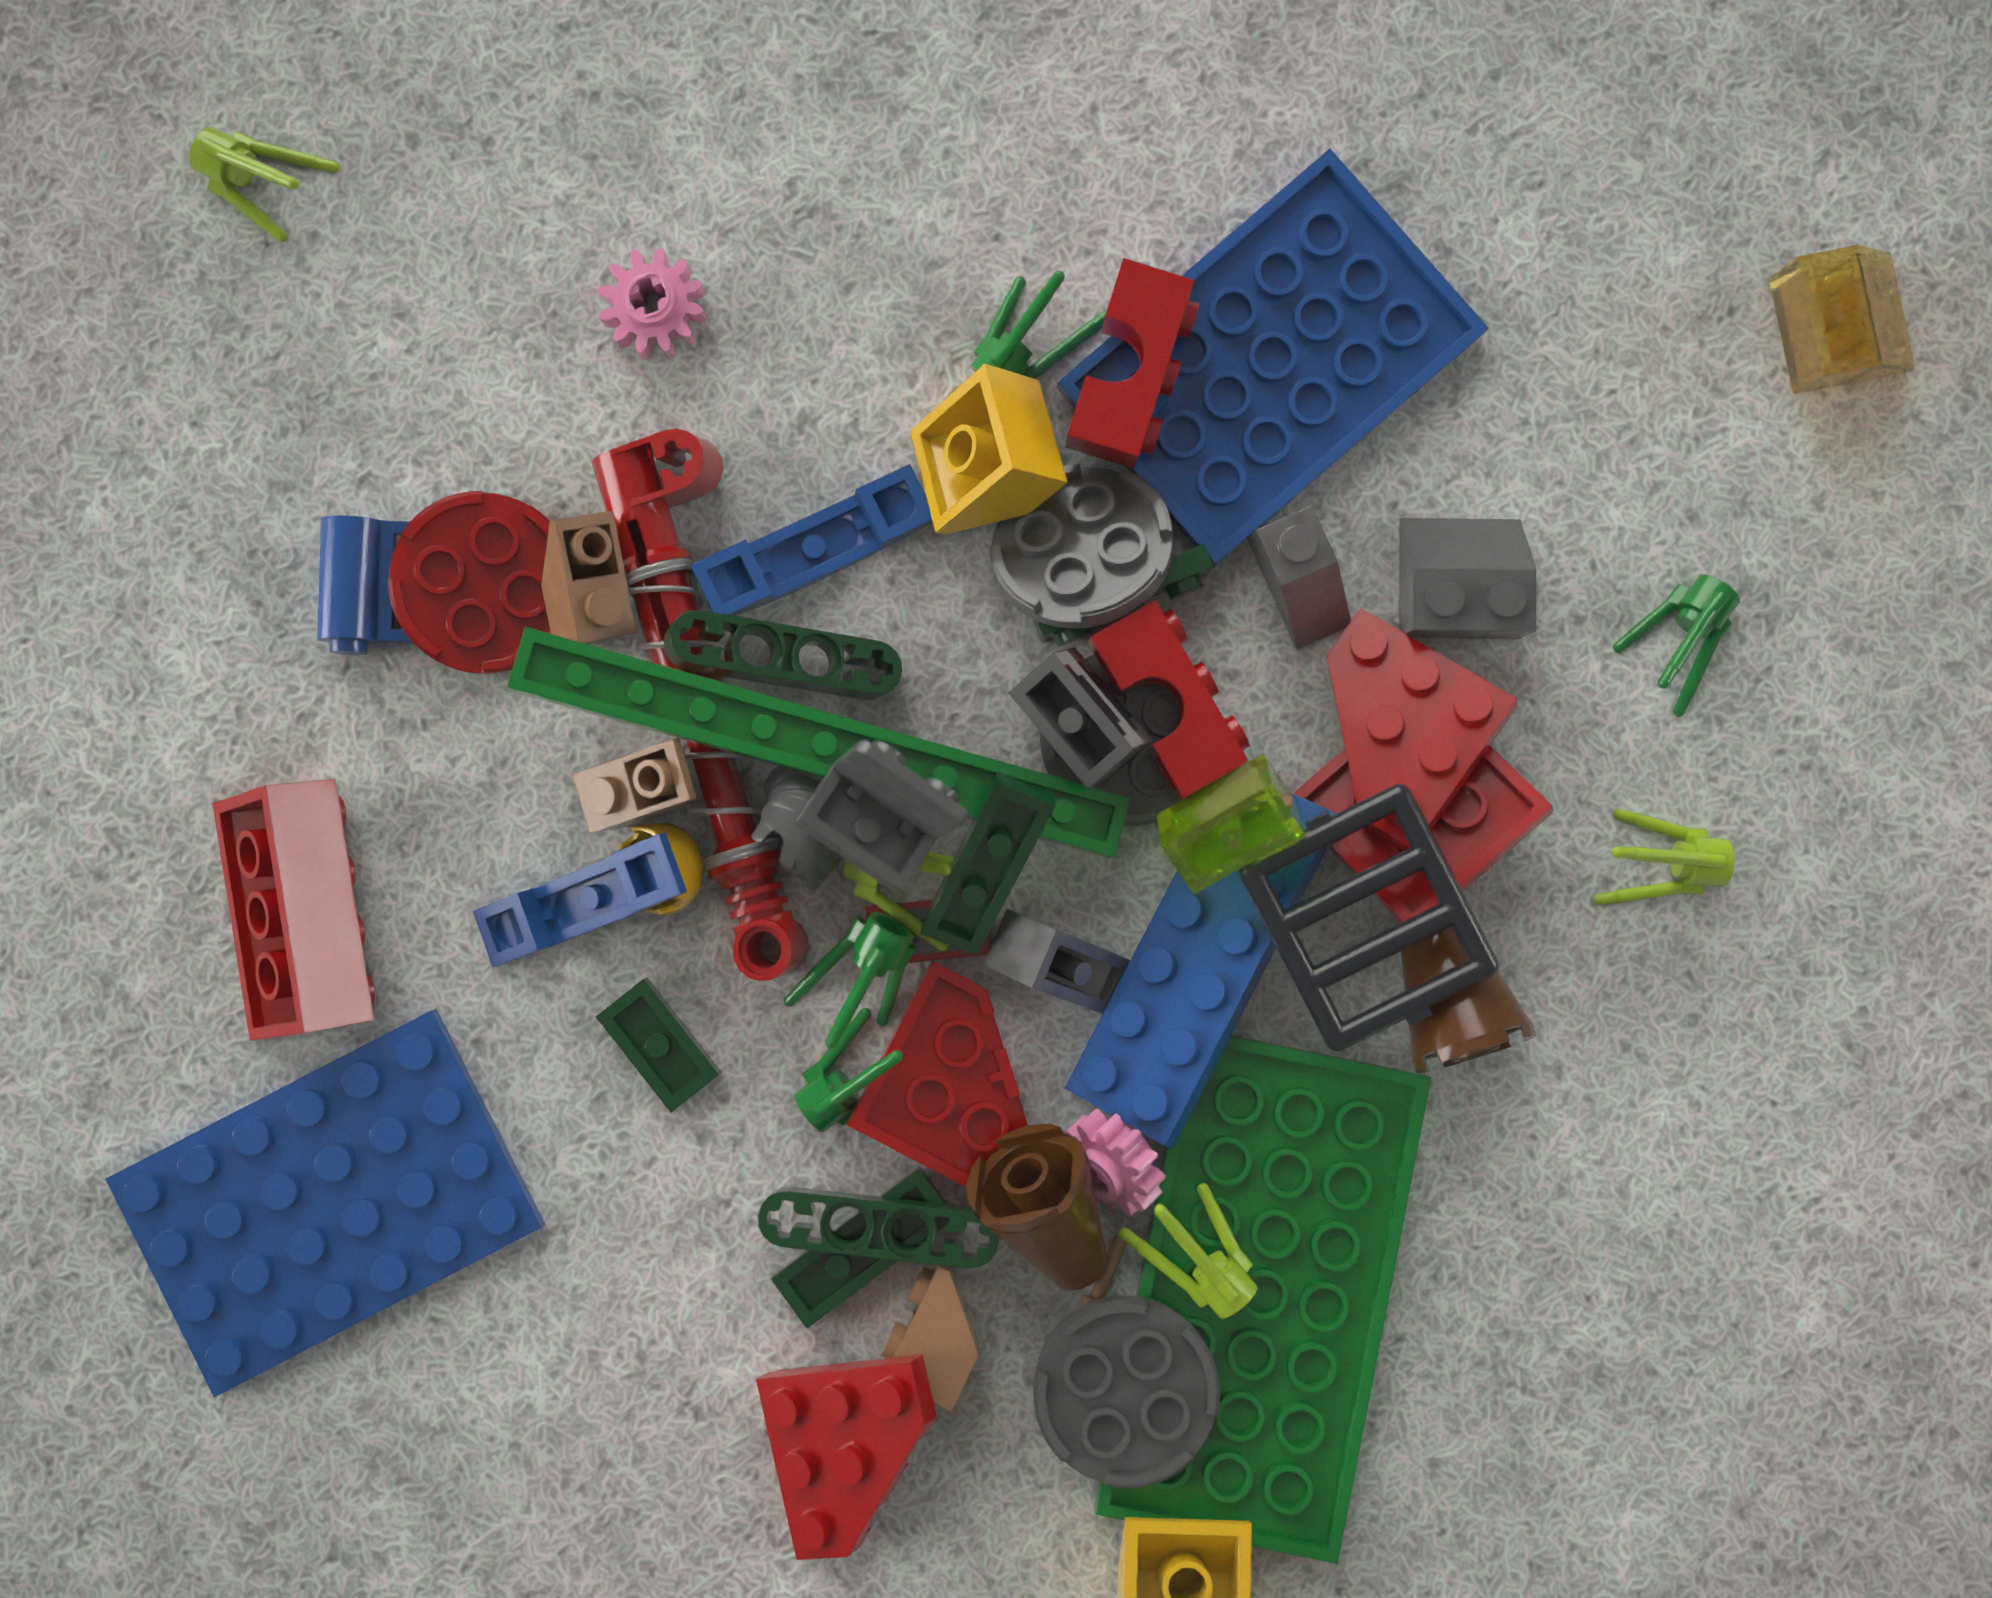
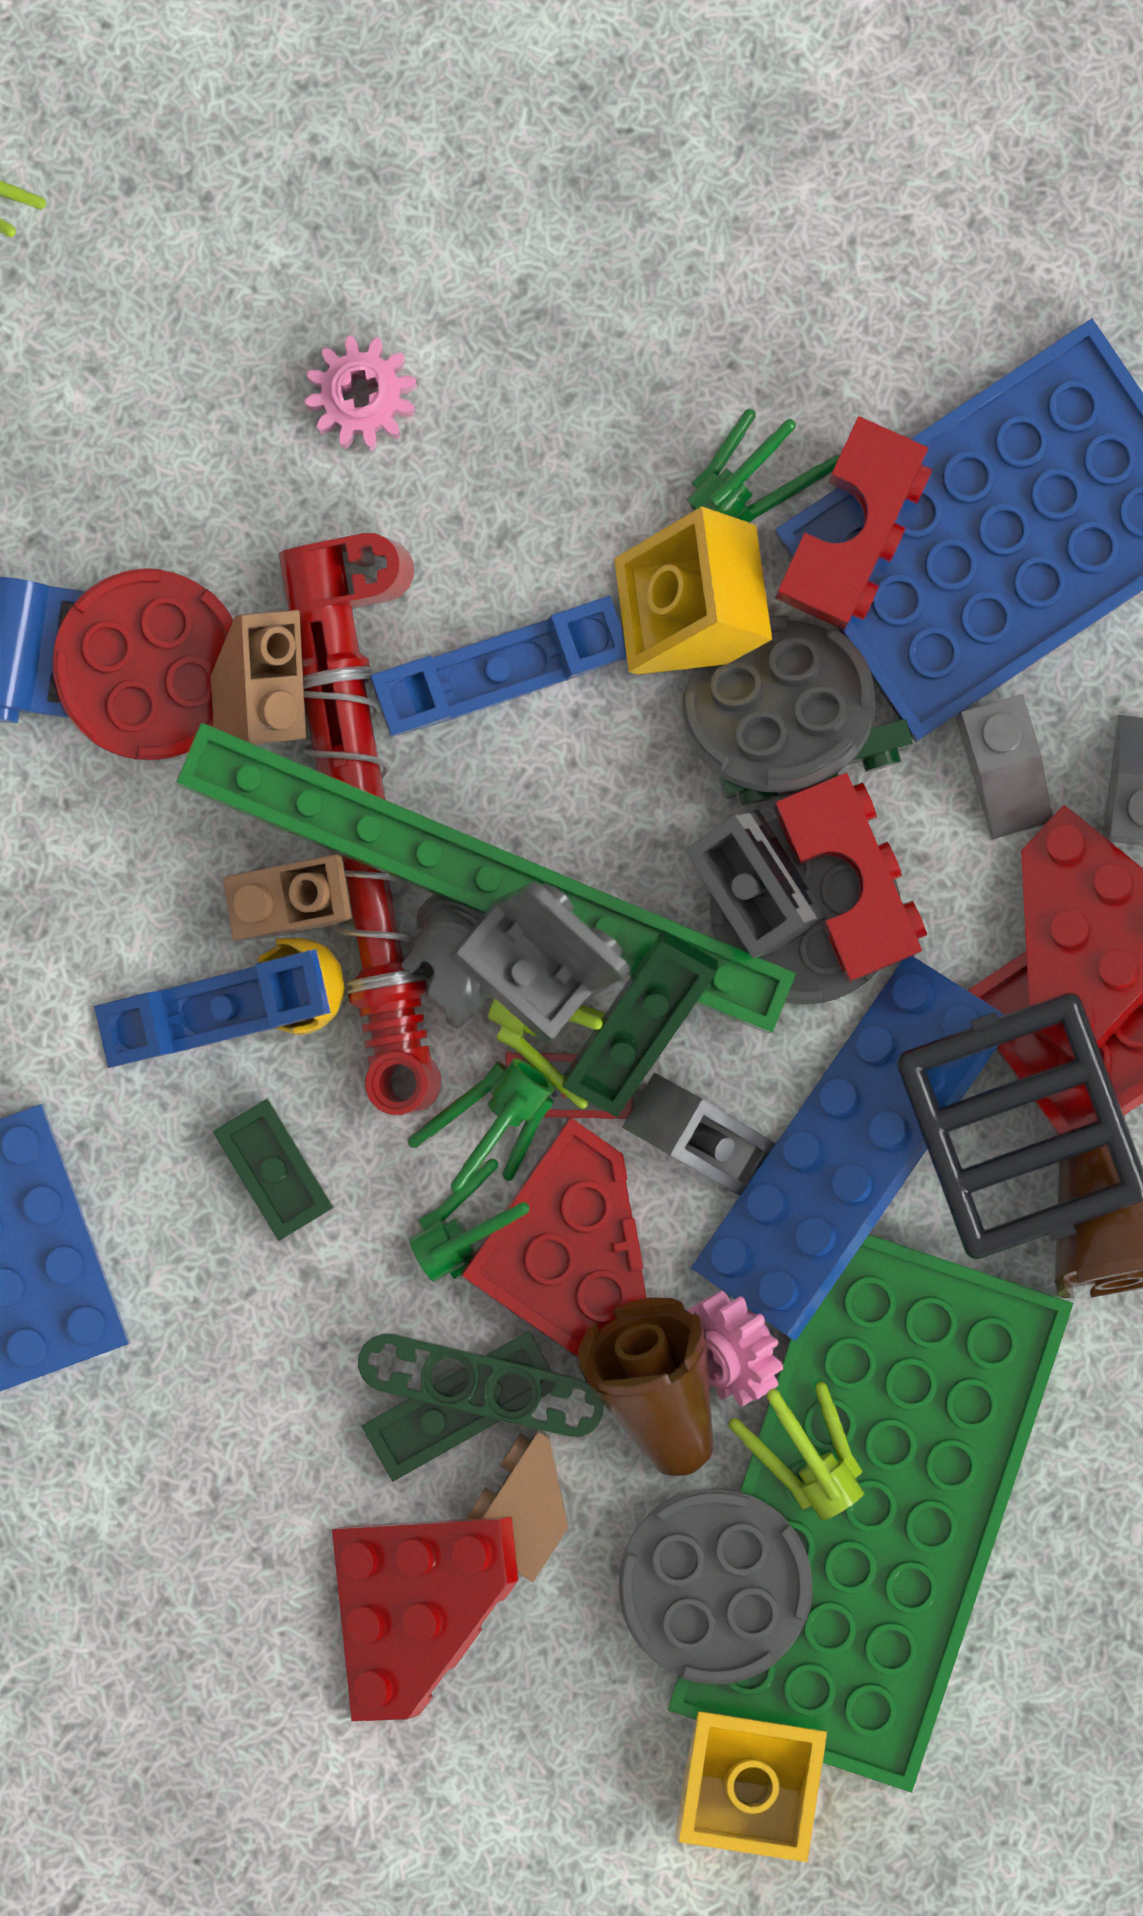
camera: 10 degrees right, 0 degrees up
(784, 647) = (457, 773): dark green beam -> none
(1102, 1284) = (711, 1467): medium nougat piece -> none
(1229, 824) = (893, 1012): clear neon green brick -> none

